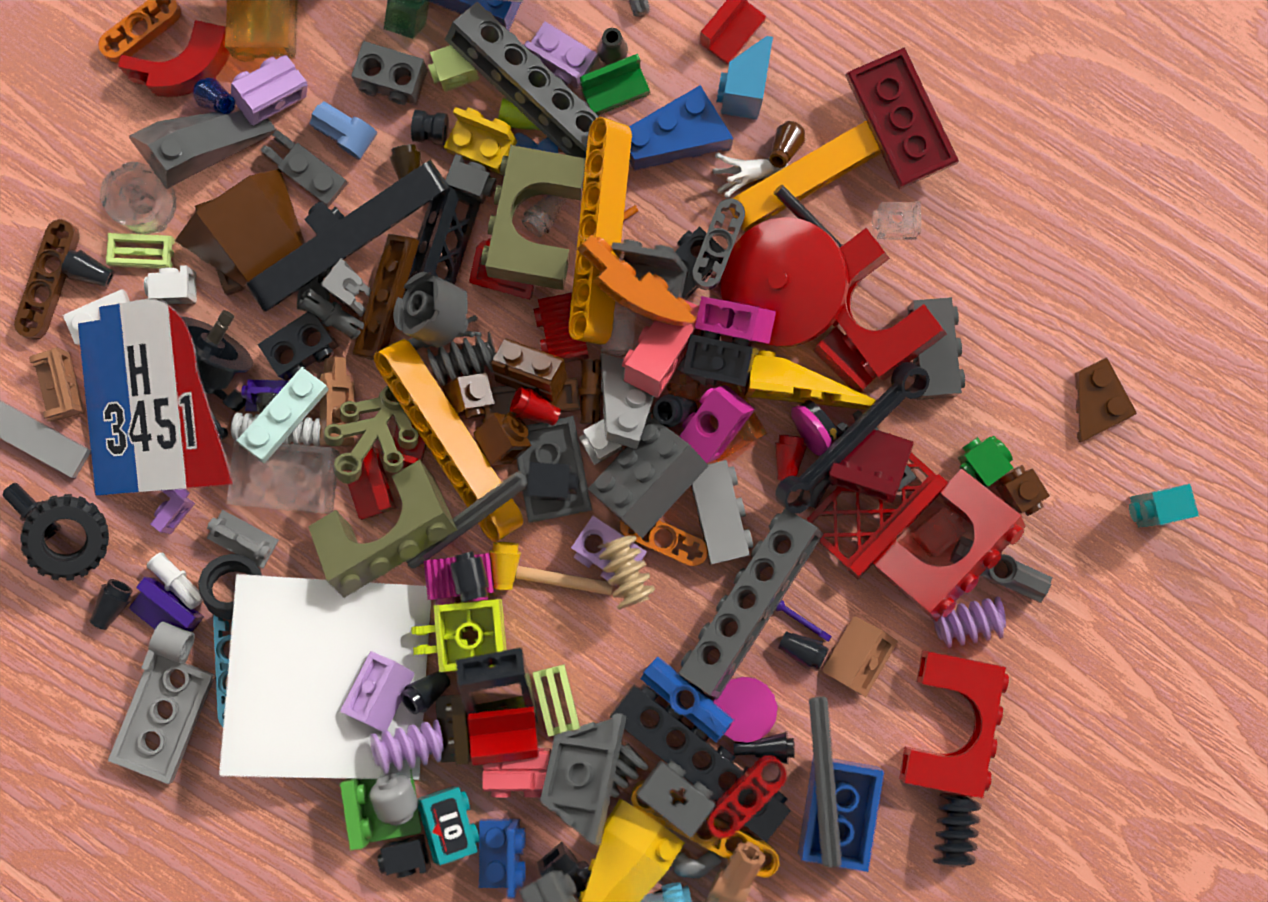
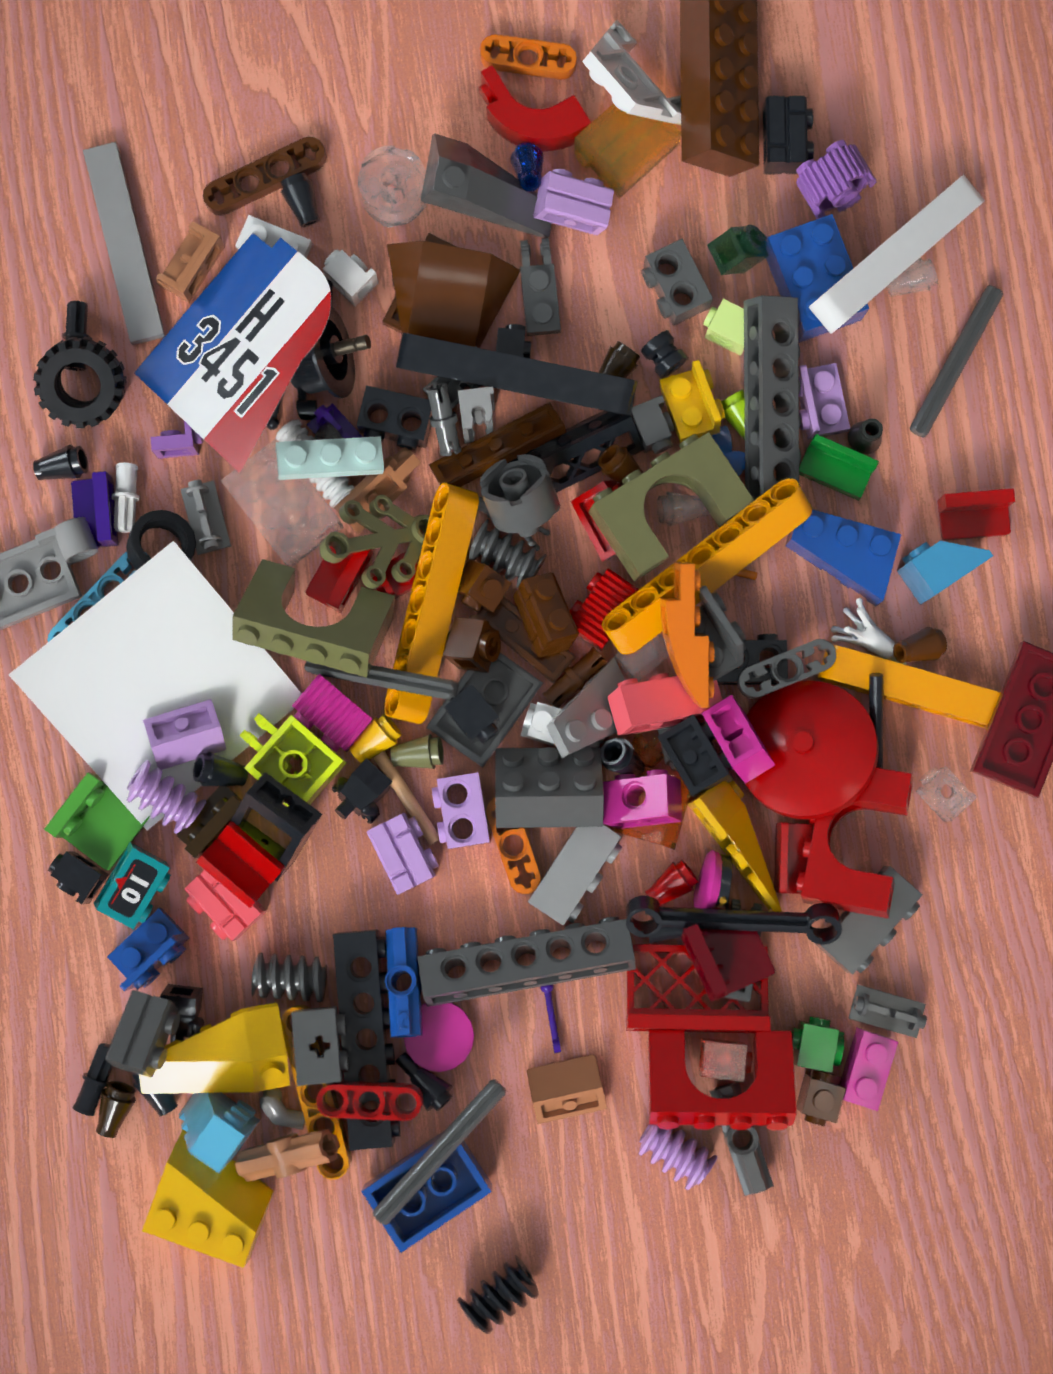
camera: 45 degrees right, 0 degrees up
(166, 252) = (372, 246): yellowish green tile -> none
(350, 133) = (599, 298): medium blue piece -> none
(394, 798) = (114, 825): light grey head -> none
(469, 576) = (339, 721): black brick -> none
(473, 226) = (617, 463): none -> reddish brown cone
(531, 606) = (362, 791): none -> black piece
(532, 406) = (519, 644): red cone -> none
(541, 544) = (419, 753): none -> olive cone
(549, 672) = (291, 905): yellowish green tile -> none
(583, 775) = (268, 955): dark grey wing -> none
(598, 618) = (402, 852): none -> lavender brick
(626, 571) = (458, 840): tan piece -> none
(804, 650) = (529, 1041): black cone -> none
(966, 768) = (555, 1257): red arch -> none
(1006, 393) = (888, 1011): none -> dark grey hinge
(1032, 441) = (867, 1068): none -> dark pink brick
(1100, 399) = (956, 1093): reddish brown wing -> none
(1163, 506) = (915, 1223): teal brick -> none

